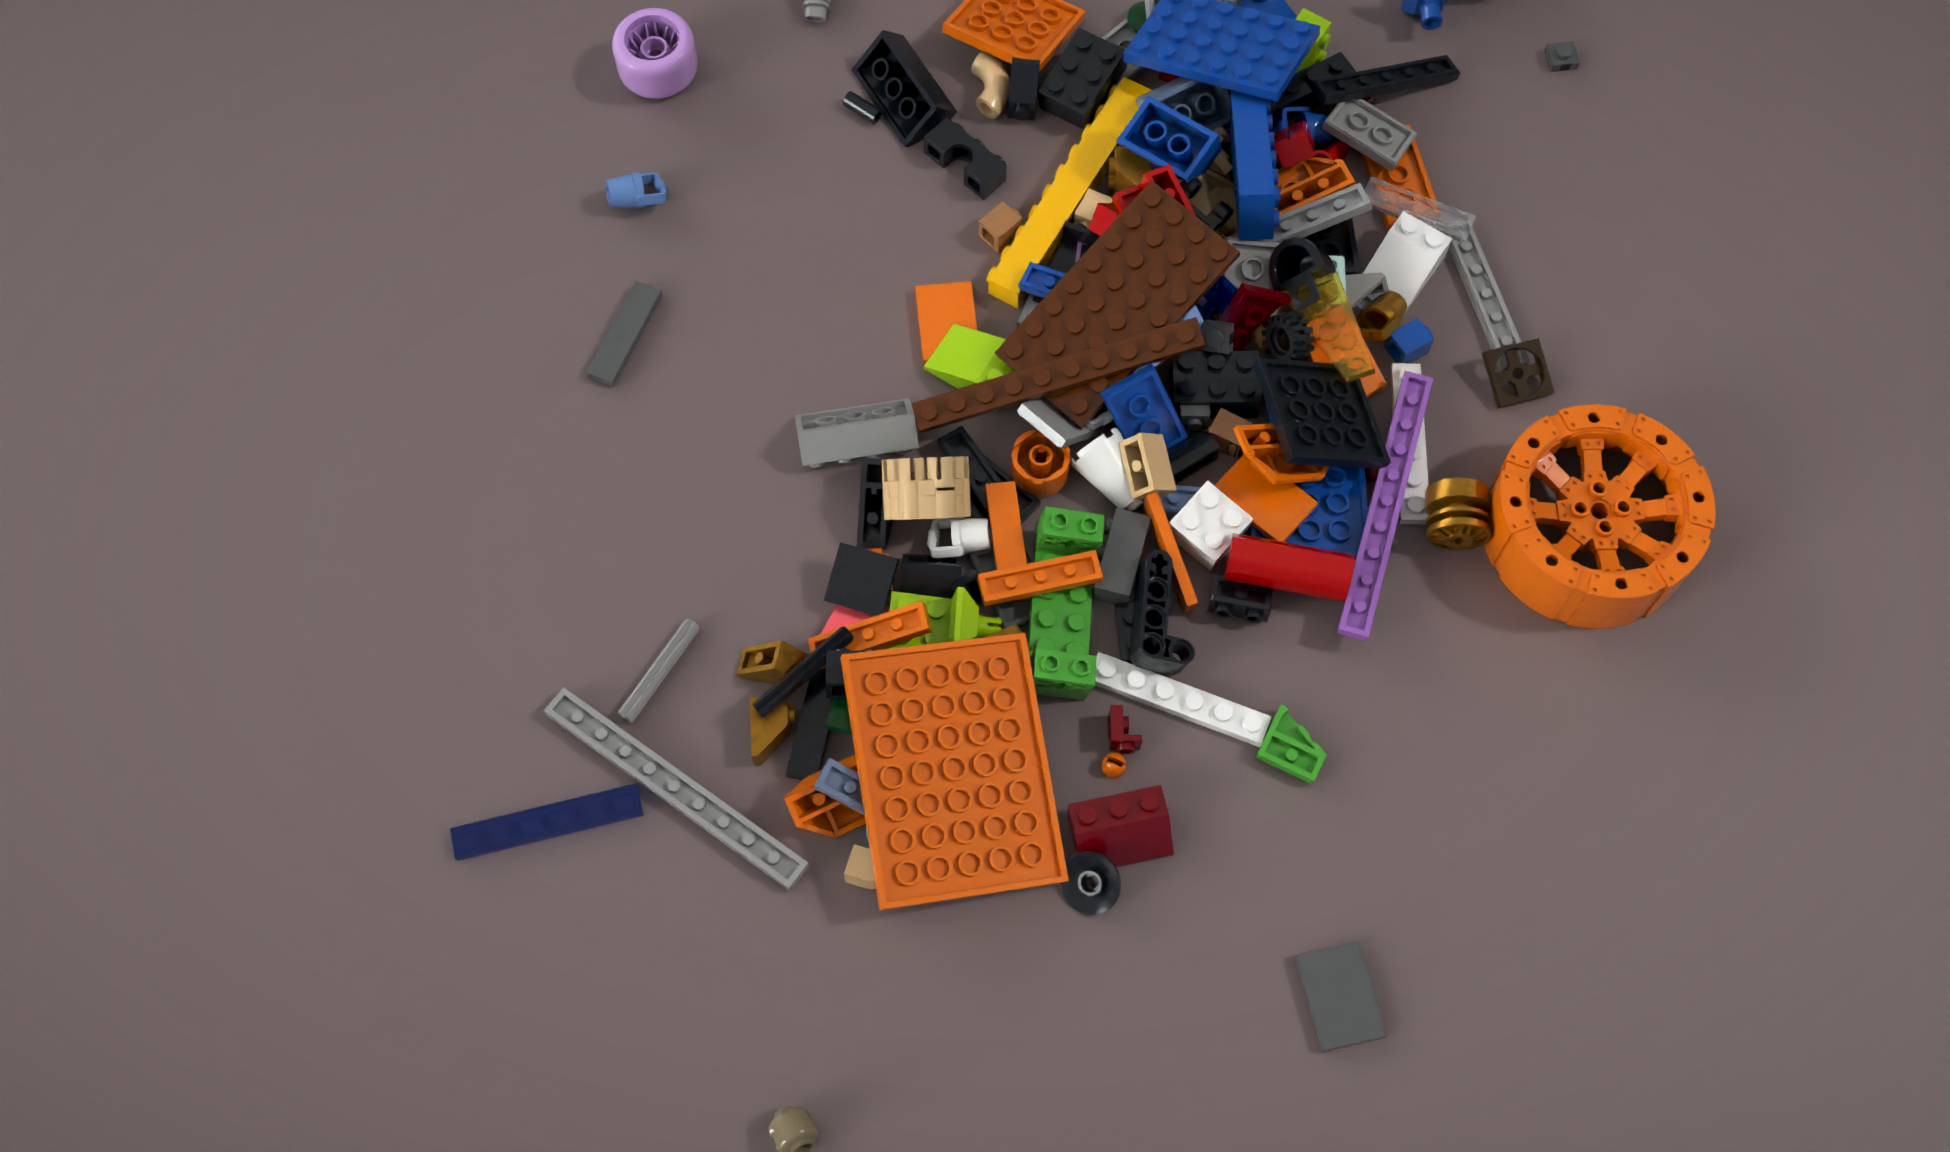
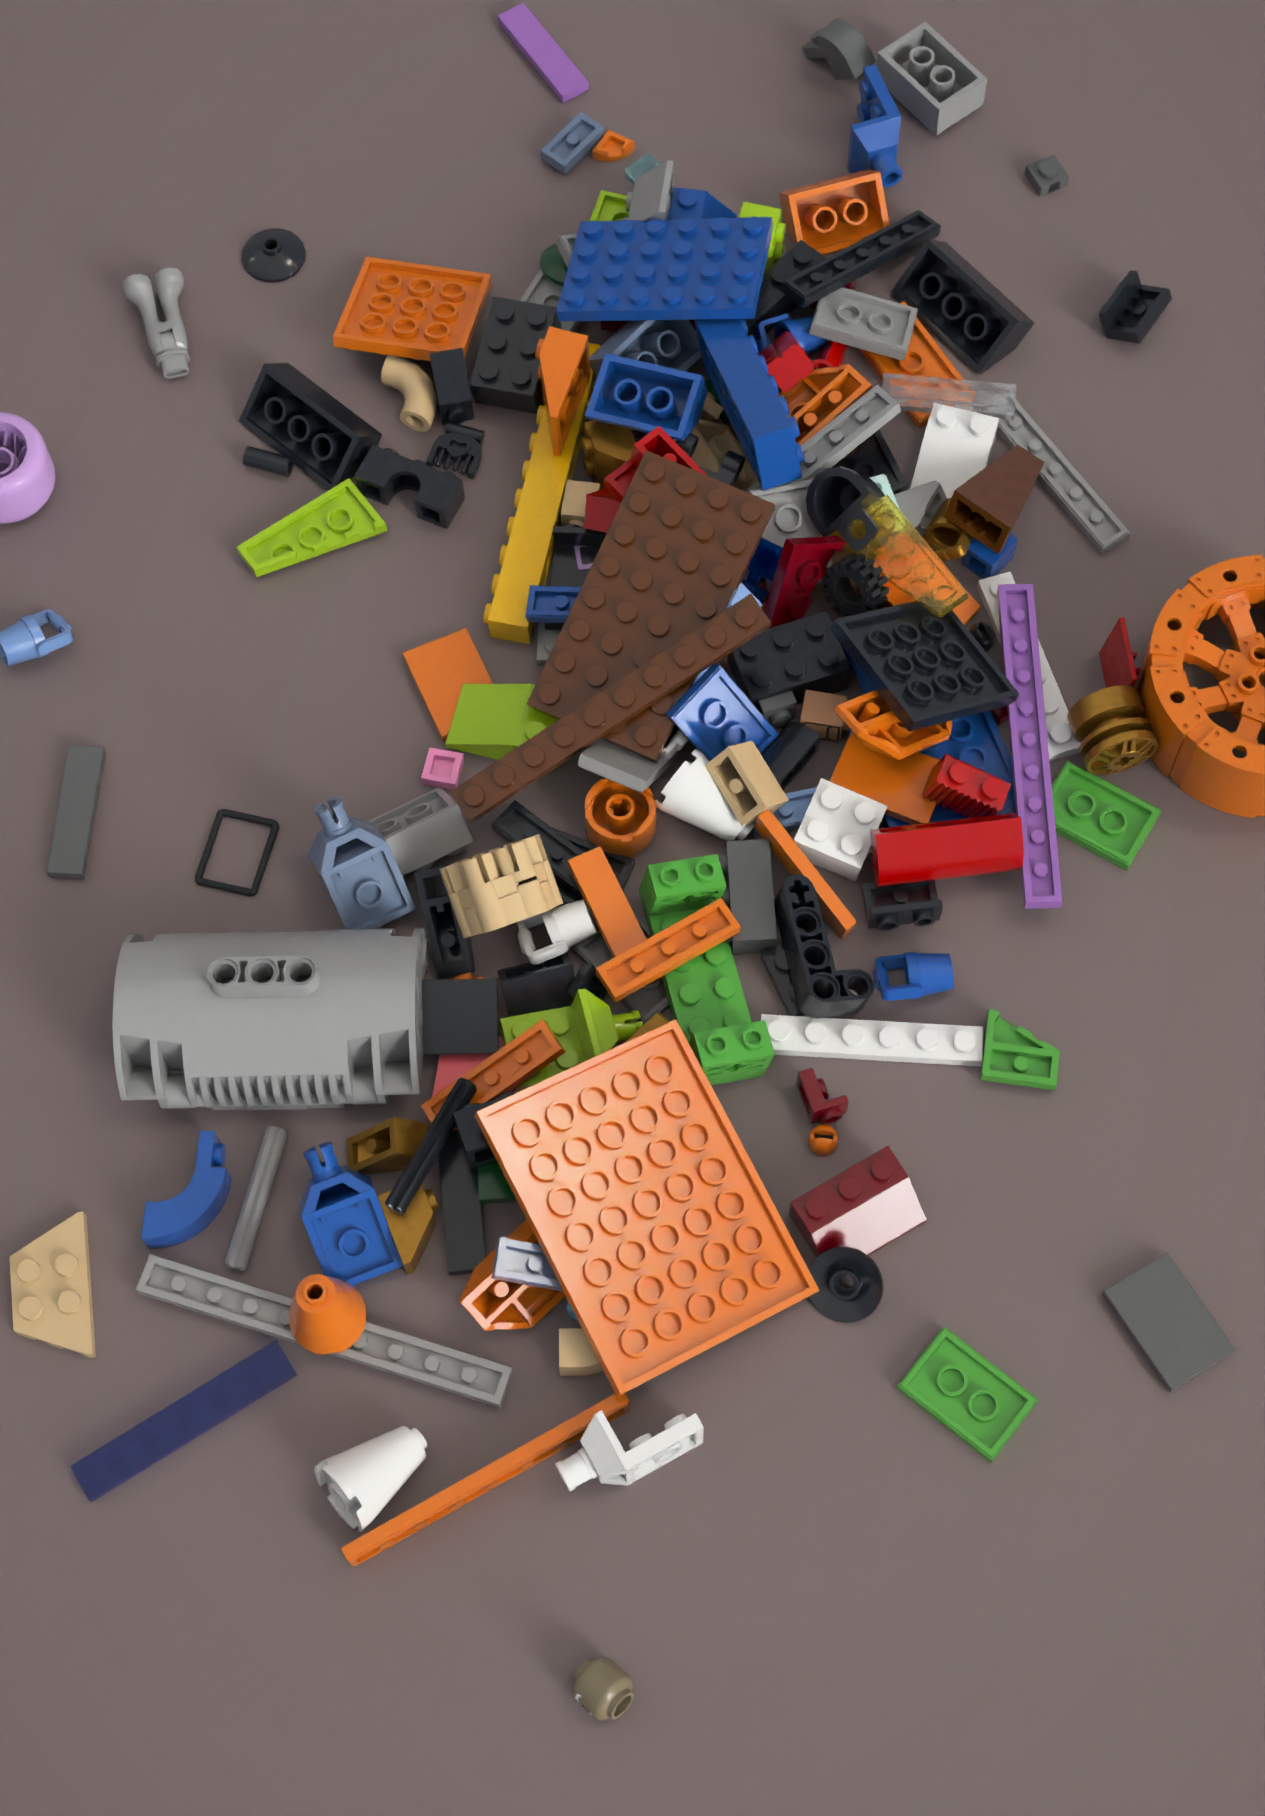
camera: 15 degrees left, 0 degrees up
(485, 690) = (54, 1288): none -> tan wing
(612, 661) = (194, 1208): none -> blue arch
(672, 908) = (371, 1474): none -> white cone
(679, 774) = (326, 1314): none -> orange cone
(712, 556) = (275, 1043): none -> light grey cylinder
(718, 387) = (210, 842): none -> black piece
(719, 710) = (346, 1221): none -> blue plate
(759, 941) = (481, 1481): none -> orange tile
(820, 443) = (358, 869): none -> sand blue plate
(884, 169) = (316, 528): none -> lime wing
(886, 964) = (605, 1458): none -> white plate
(915, 384) = (442, 768): none -> bright pink tile
(999, 226) = (478, 554): medium nougat brick -> none
(1016, 138) = (460, 444): none -> black piece
(1111, 108) = (564, 377): none -> orange slope
(1158, 1000) = (967, 1394): none -> bright green tile
(1218, 336) = (778, 607): dark grey plate -> none
(1238, 662) = (923, 975): none -> blue piece
(1321, 523) = (965, 788): none -> red brick
(1374, 404) = (988, 631): none -> black hinge
(1378, 37) = (835, 211): none -> orange slope
(1426, 579) = (1100, 815): none -> bright green tile
(1427, 300) = (995, 497): none -> reddish brown slope
(1455, 141) = (961, 306): none -> black slope
(1482, 457) = (1118, 658): none -> red piece
(1538, 368) = (1144, 536): dark brown piece -> none
(1594, 183) = (1133, 309): none -> black bracket

